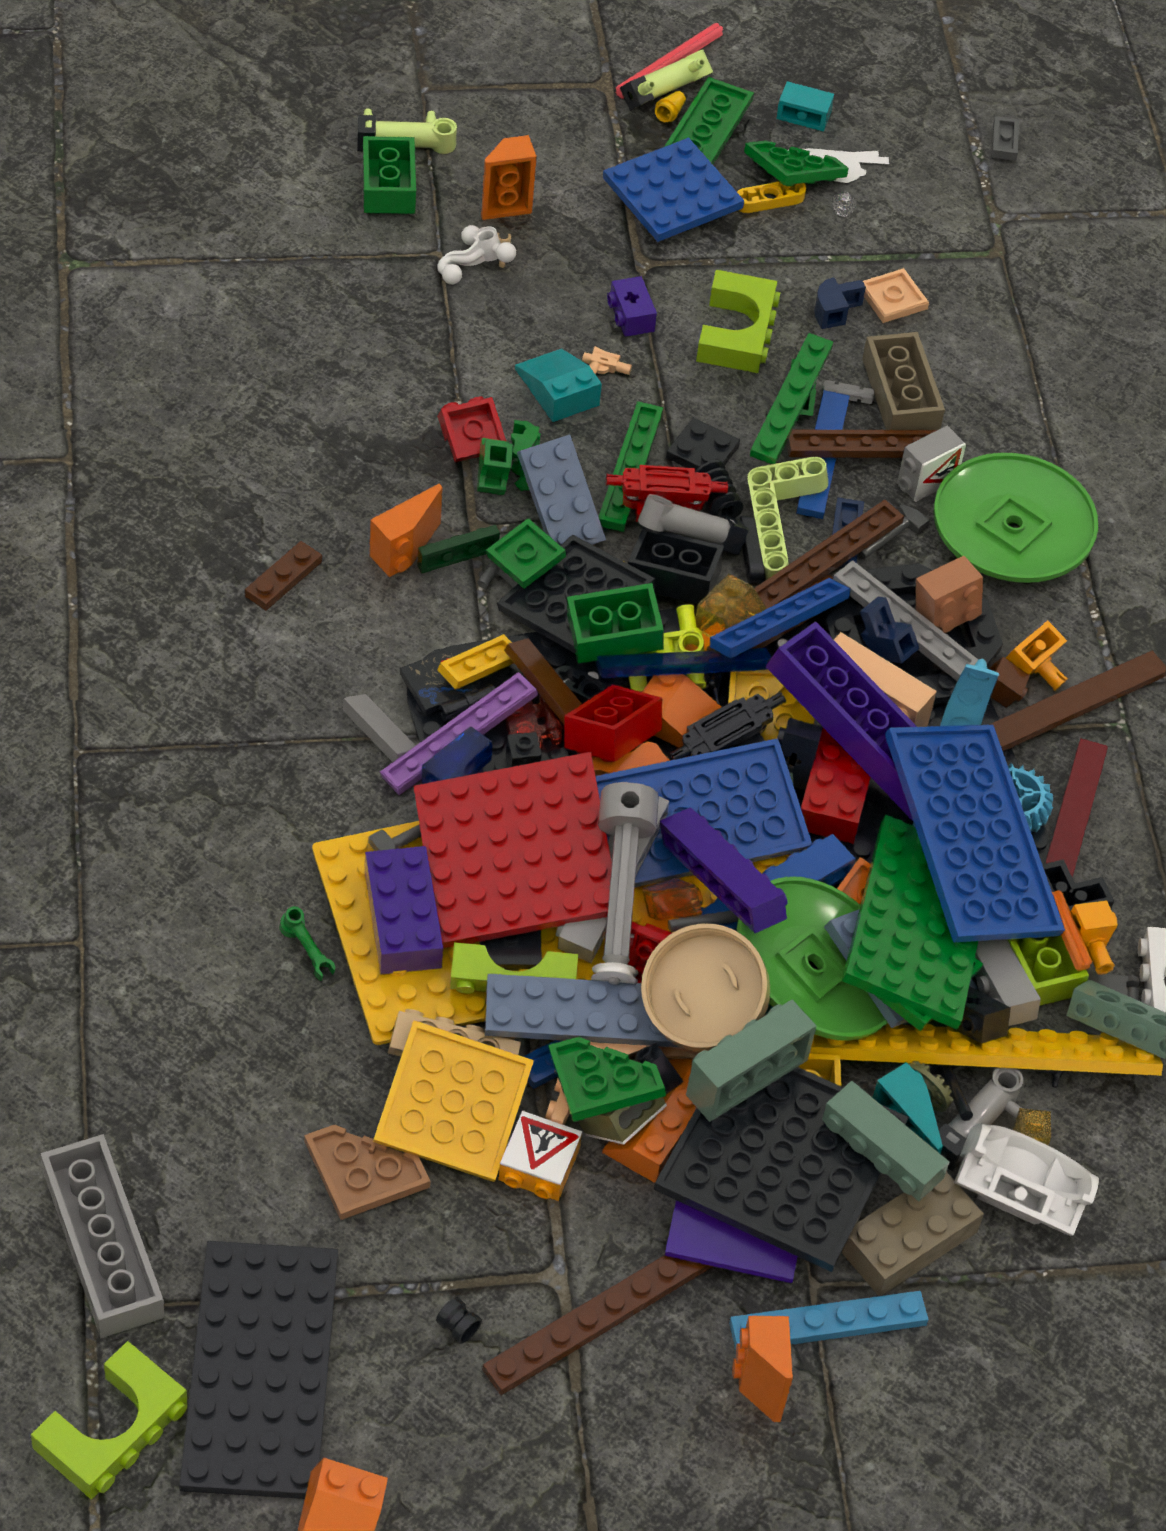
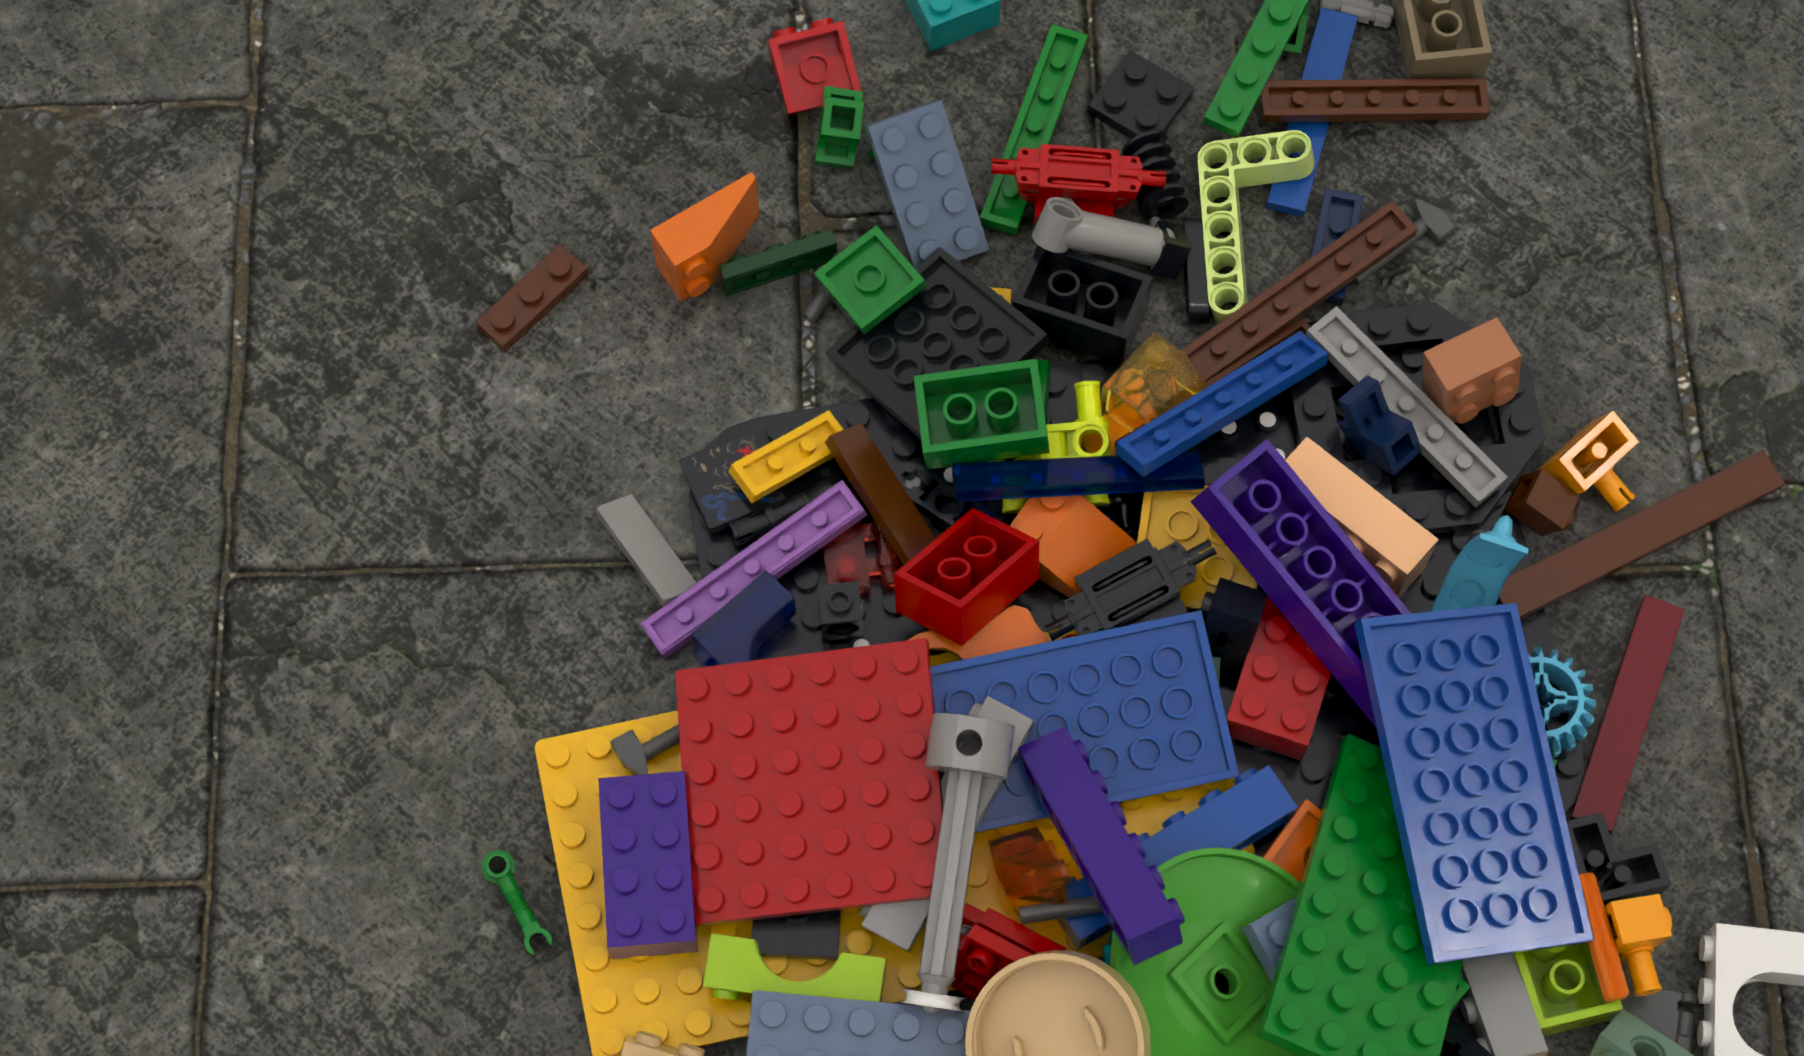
camera: 10 degrees right, 15 degrees up
(523, 437) = (885, 90): green hand -> none
(929, 462) = (1465, 138): piece -> none
(1008, 488) = (1589, 180): bright green dish -> none

